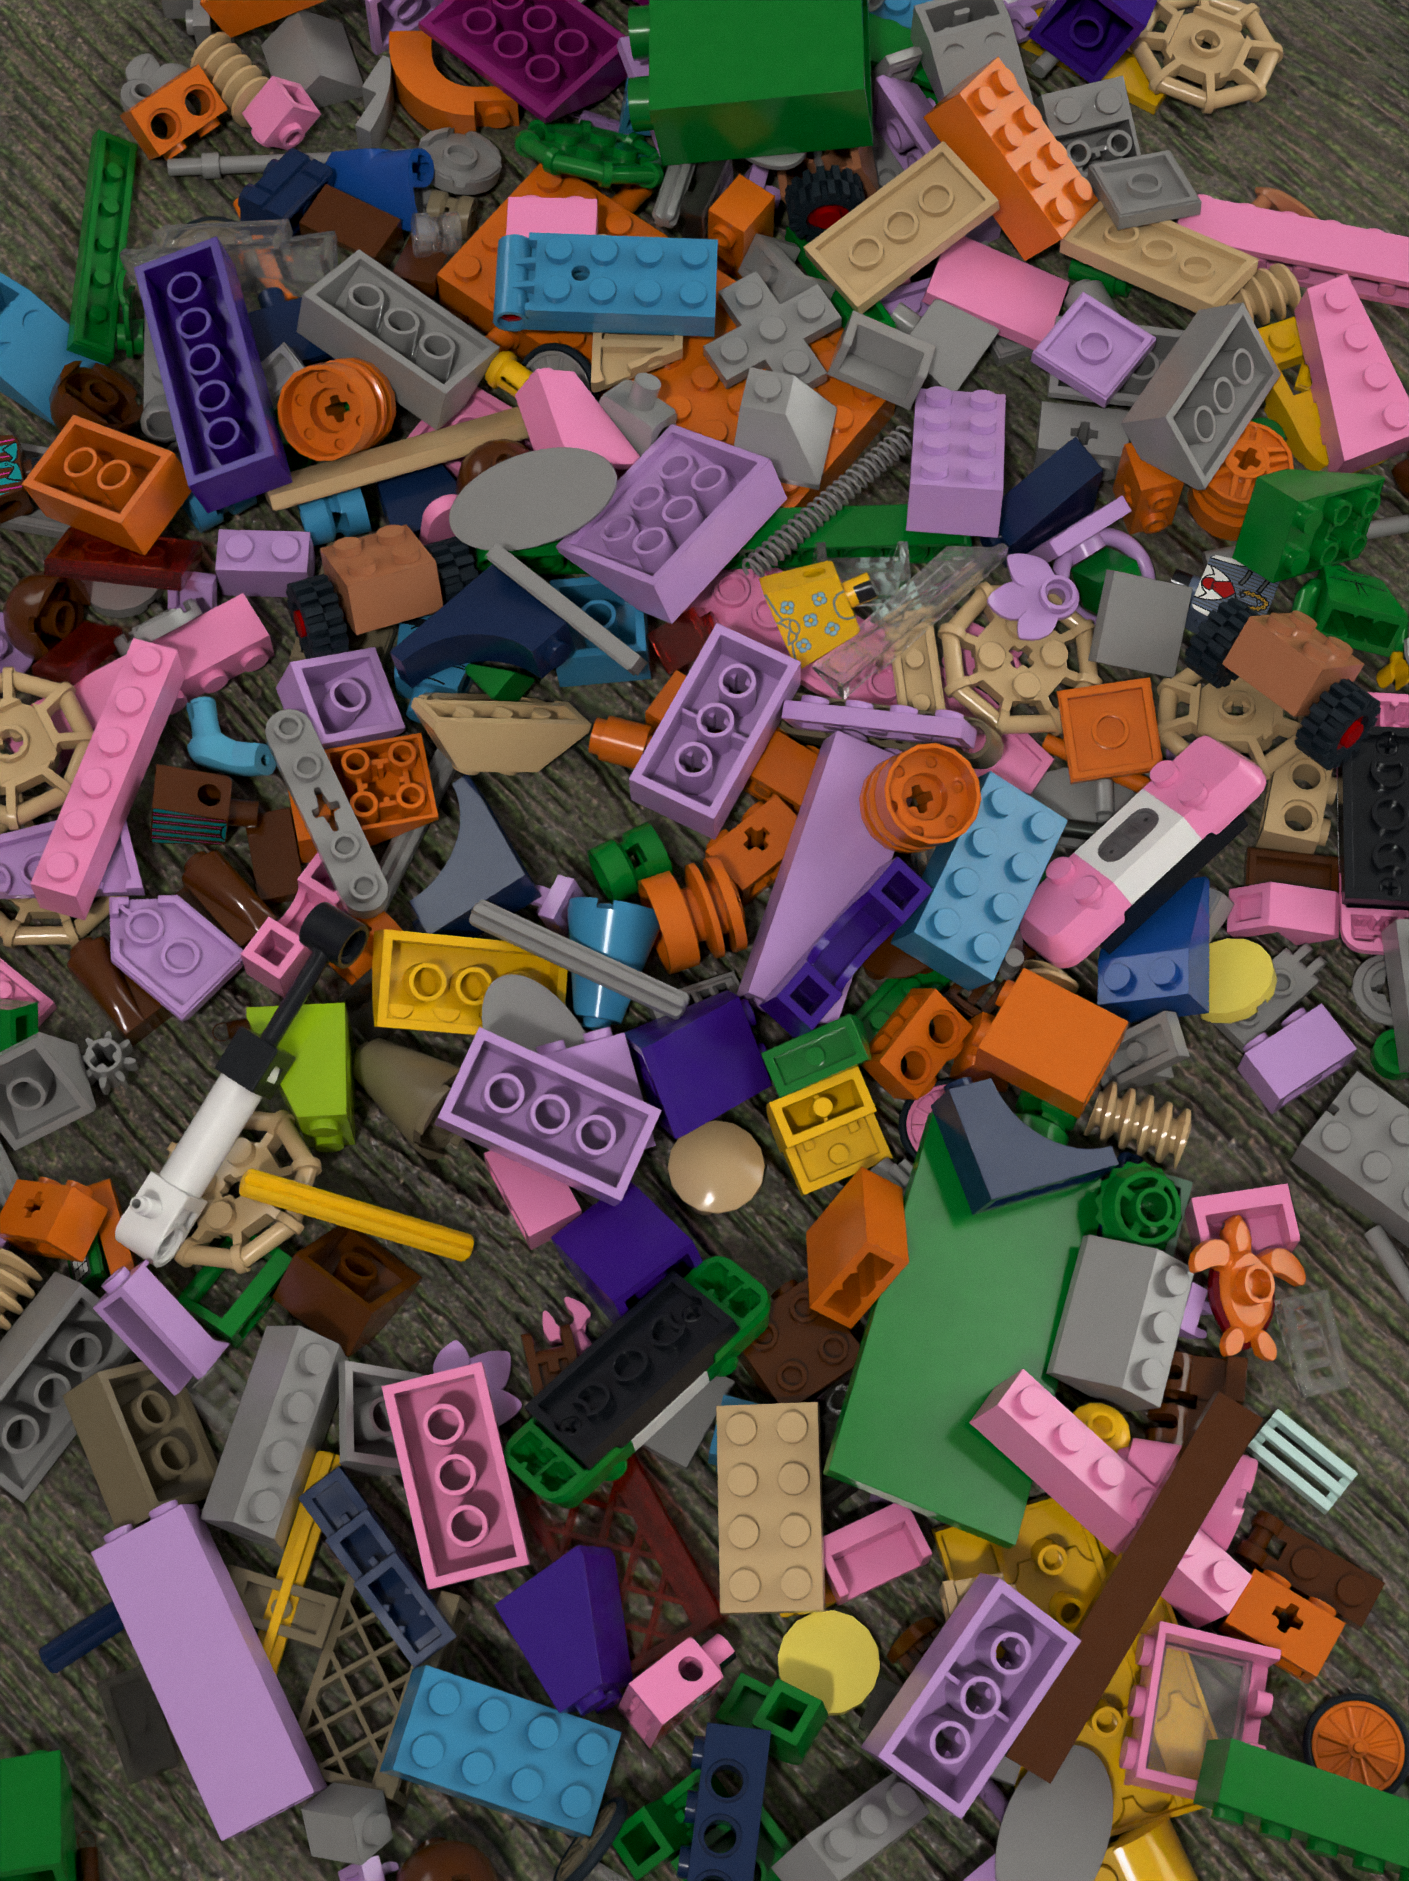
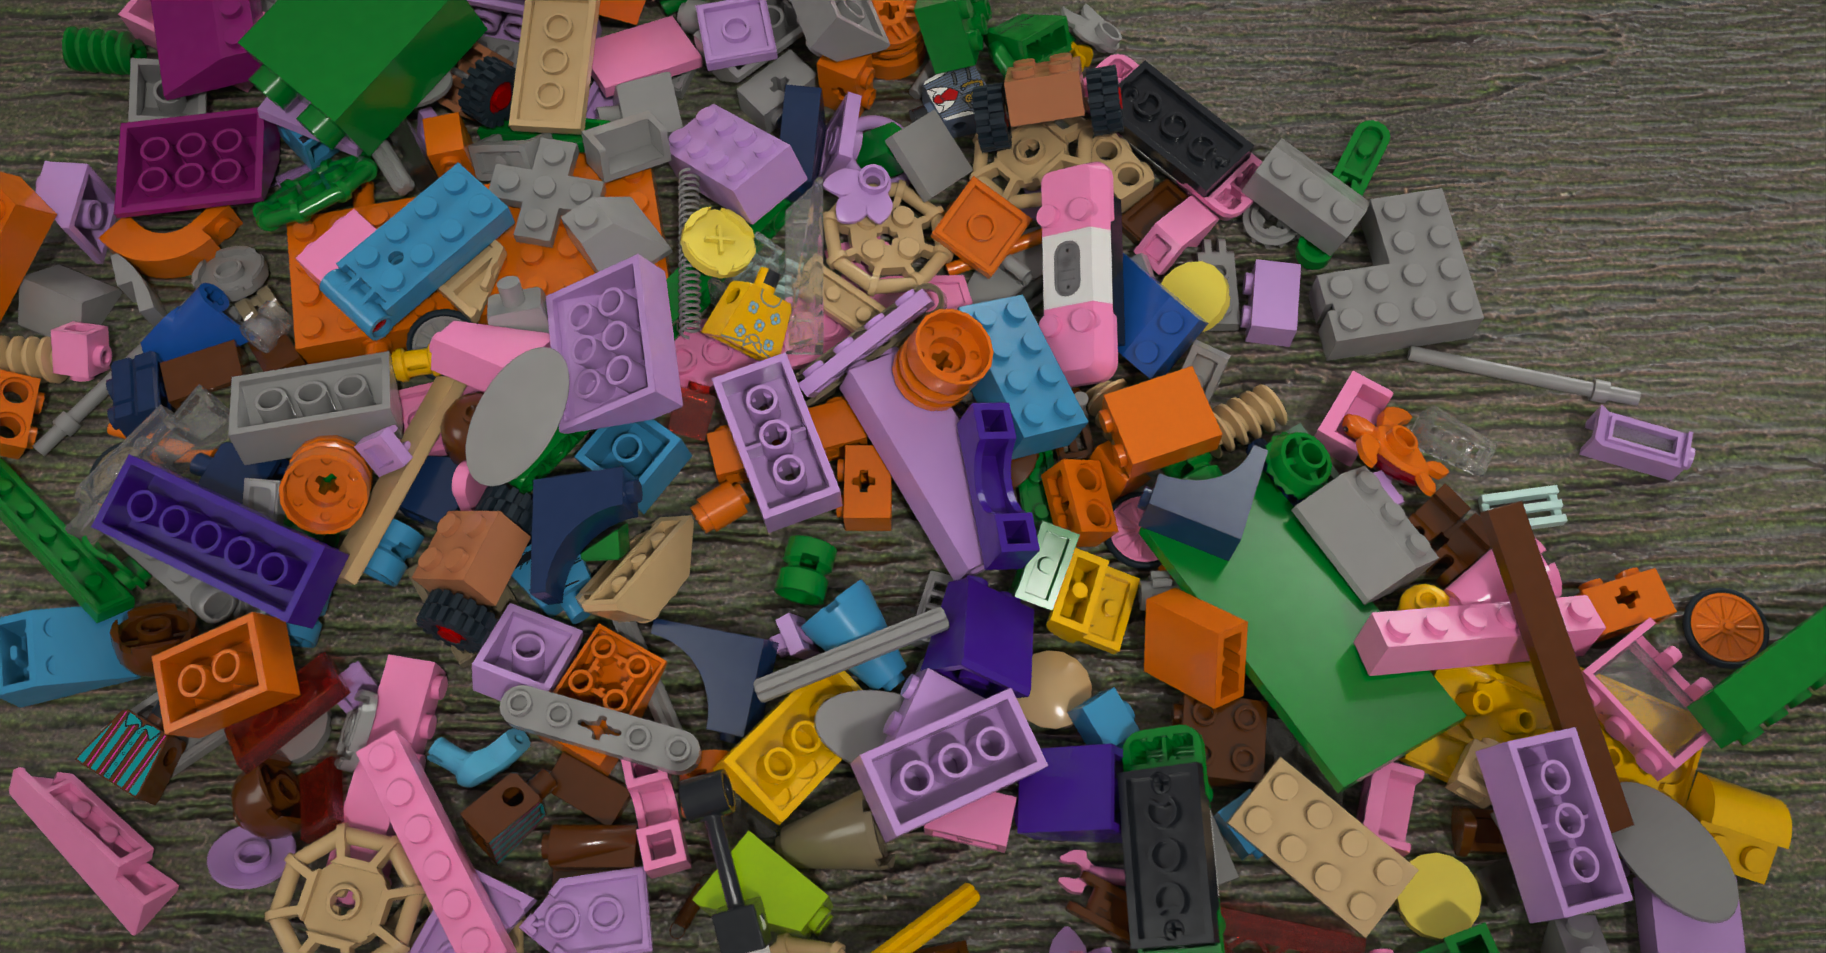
camera: 45 degrees left, 0 degrees up
(262, 561) = (378, 623): lavender brick -> none
(407, 424) = (384, 451): none -> lavender tile
(566, 609) = (622, 458): light grey tile -> none
(694, 914) = (881, 556): orange wheel -> none
(725, 1230) = (1104, 719): none -> dark azure brick
(860, 517) = (718, 242): none -> light yellow tile
(1311, 1569) = (1601, 558): reddish brown plate -> none

